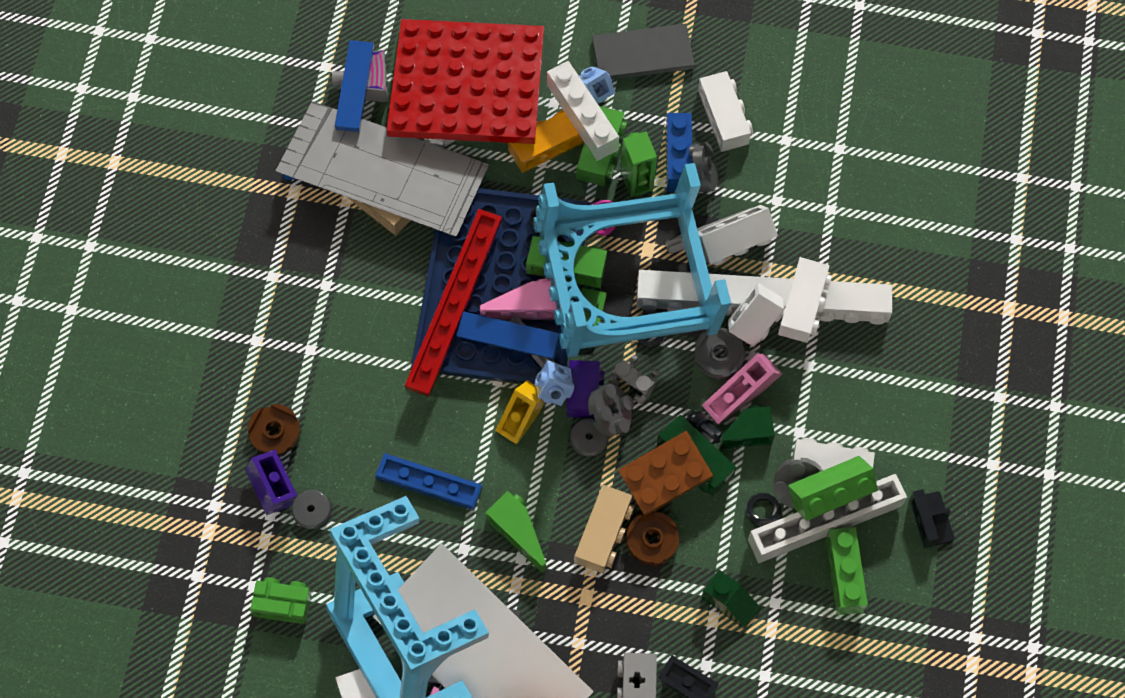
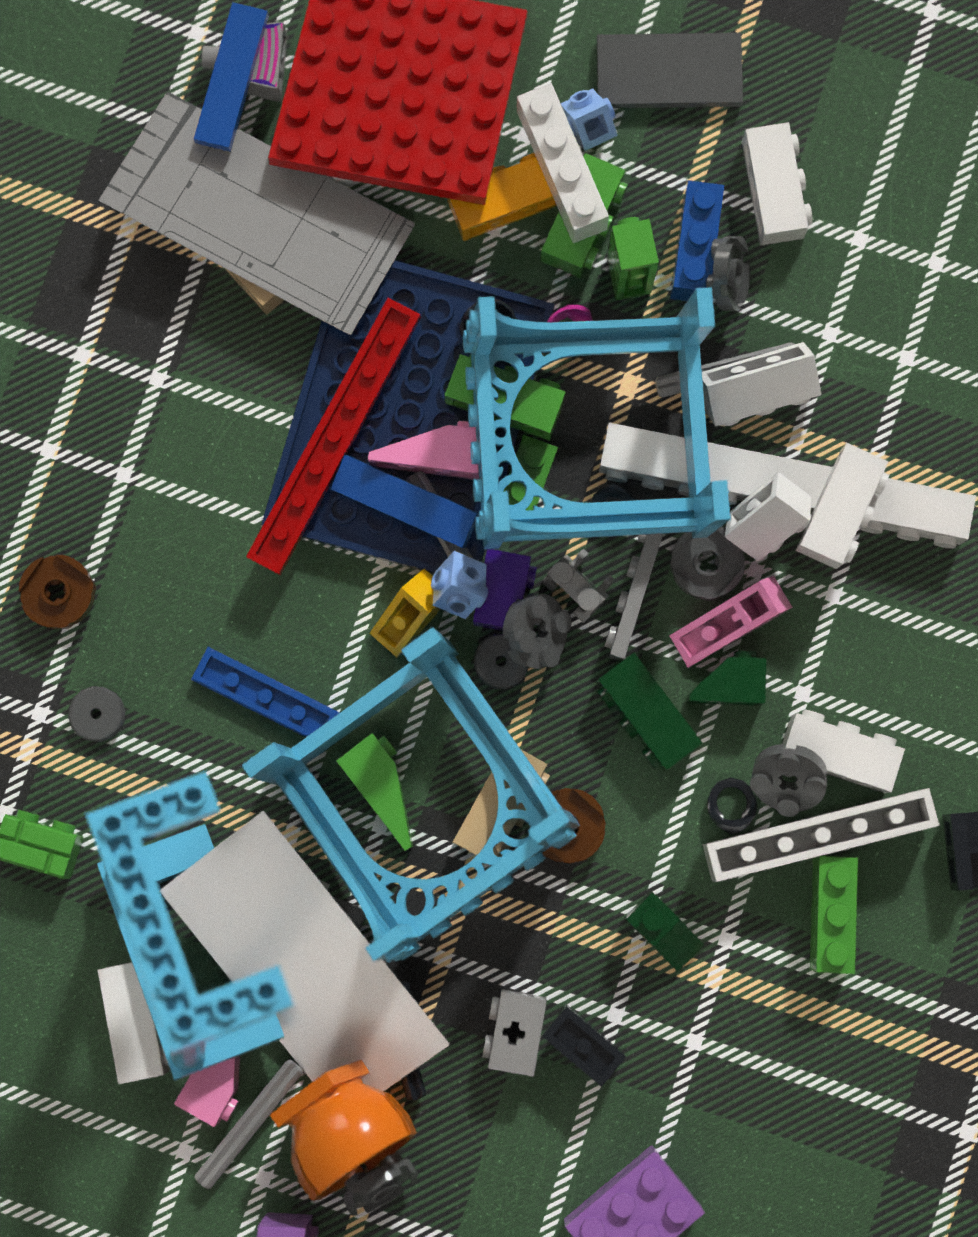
camera: 15 degrees right, 15 degrees up
(270, 482) = (41, 672): dark purple brick -> none
(637, 522) = (393, 927): none -> medium azure arch
(665, 473) = (599, 739): dark orange plate -> none
(671, 384) = (630, 602): none -> light grey plate
(704, 426) = (666, 672): black axle -> none
(833, 488) = (835, 801): bright green brick -> none

